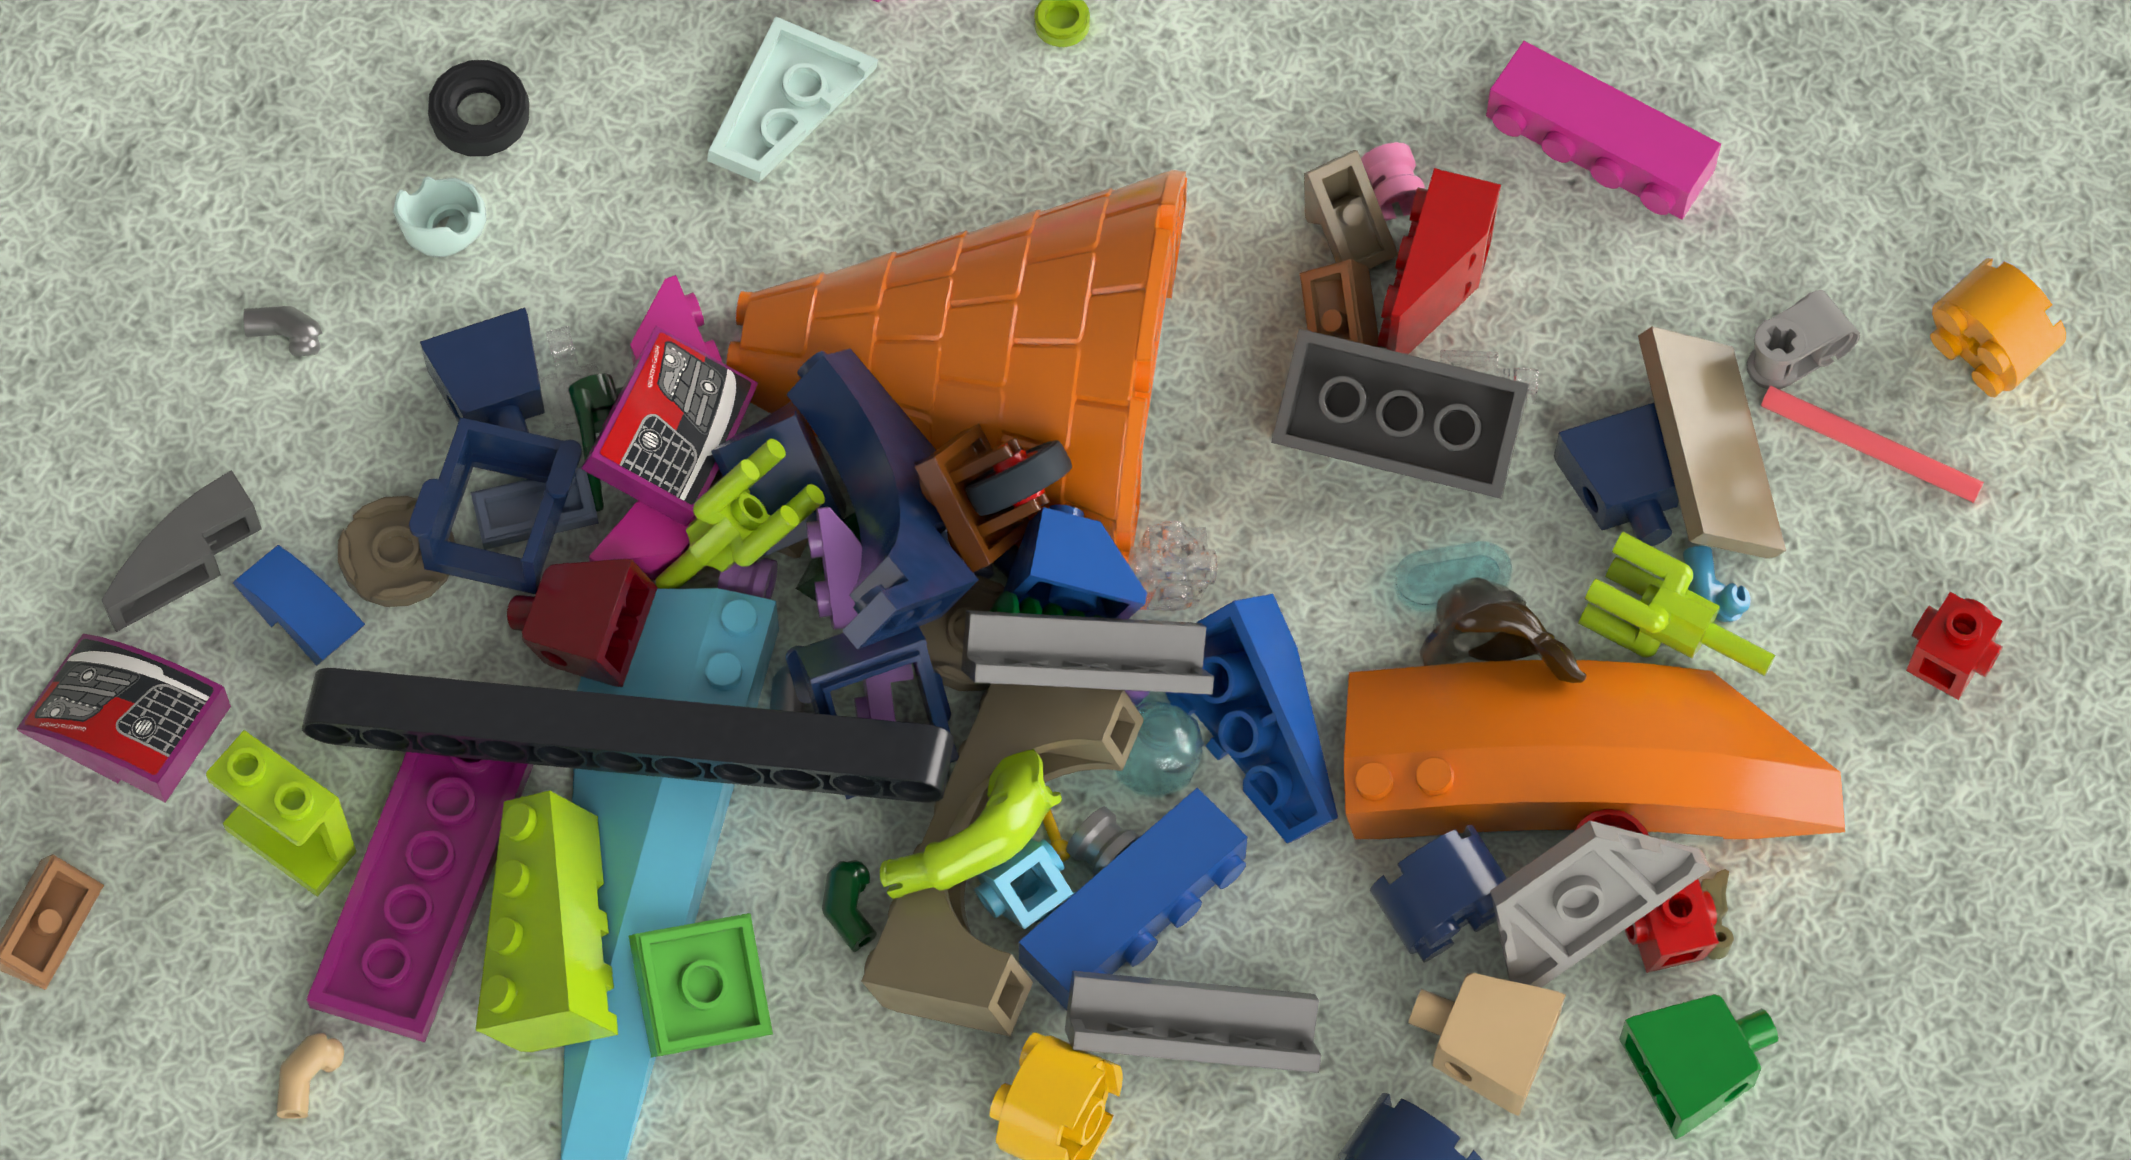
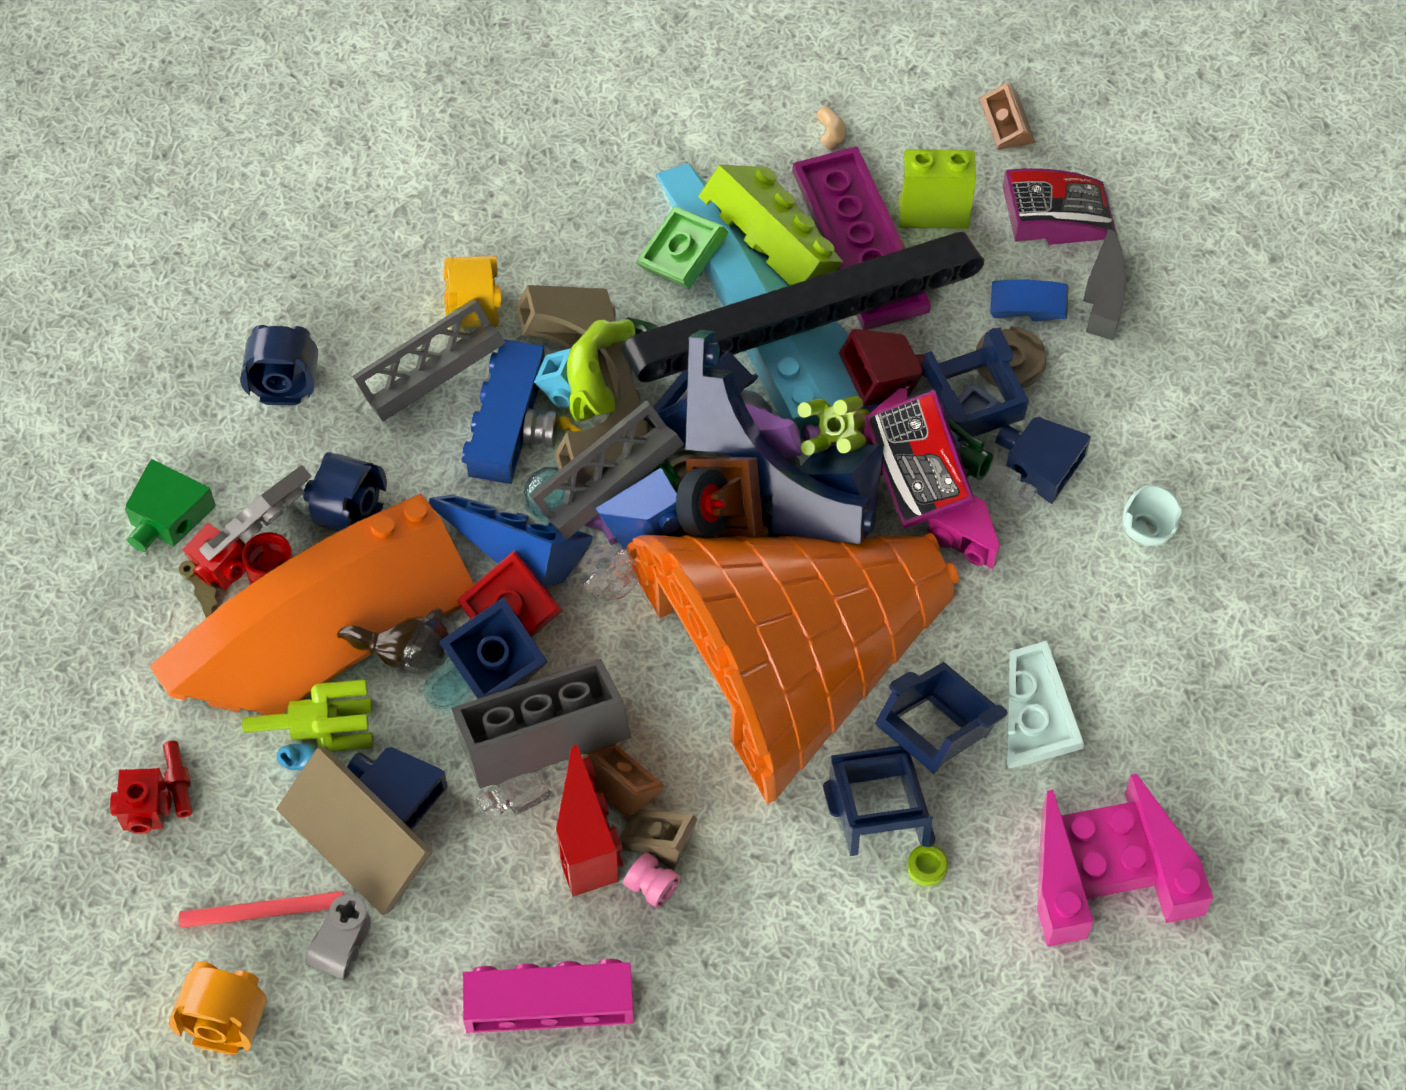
camera: 145 degrees right, 5 degrees down
(284, 321) = (1170, 425): flat silver arm -> none
(472, 78) = (1199, 576): black tyre -> none
(881, 96) = (950, 695): none -> dark blue piece
(1102, 140) = (871, 766): none -> dark blue piece
(1328, 605) = (521, 590): none -> red tile
(1400, 539) = (494, 651): none -> dark blue slope
(1491, 1035) = (276, 450): tan torso -> none
(1888, 665) = (177, 779): none -> red bar

